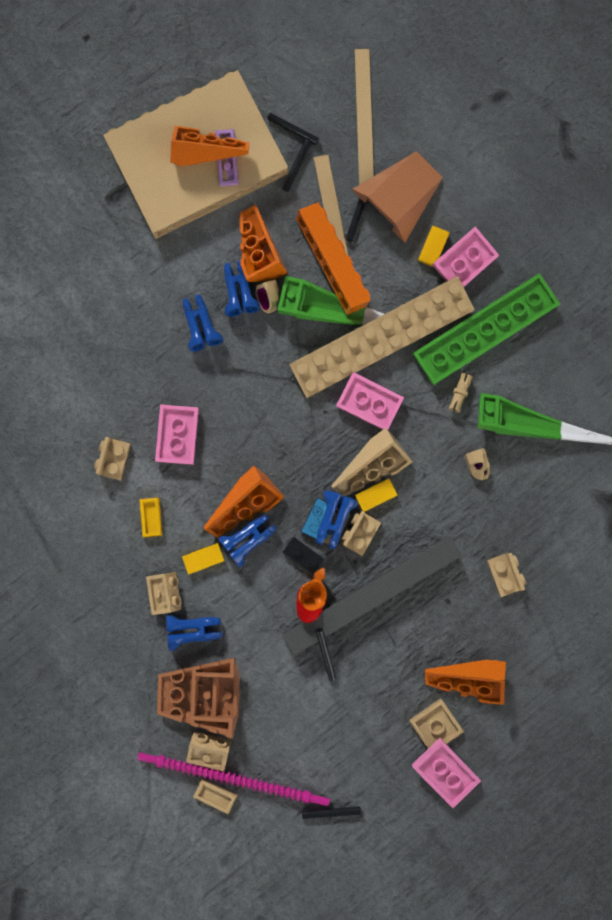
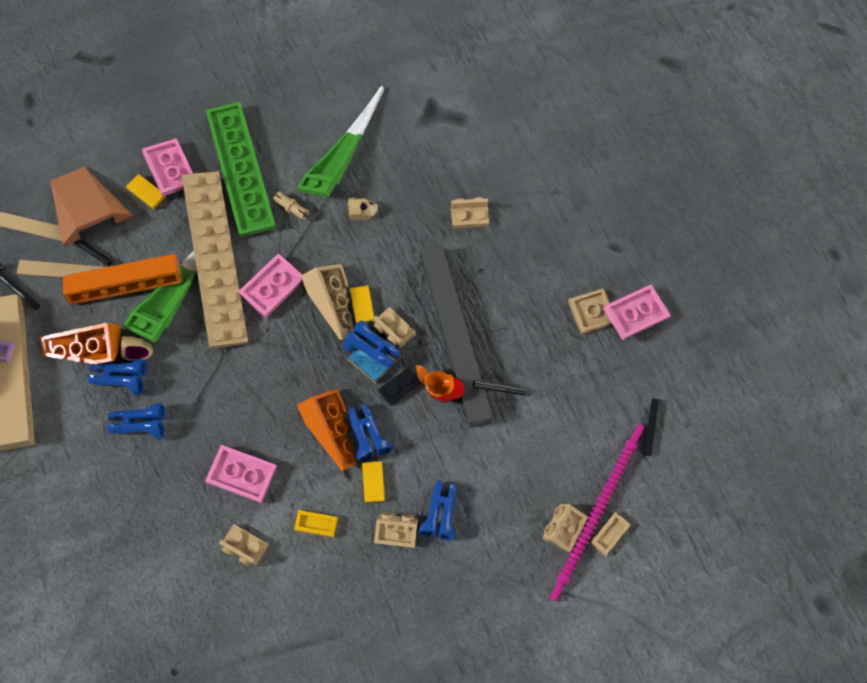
camera: 75 degrees left, 15 degrees down
(202, 696) = (507, 518): nougat wedge -> none
(479, 679) = (558, 263): orange wedge -> none

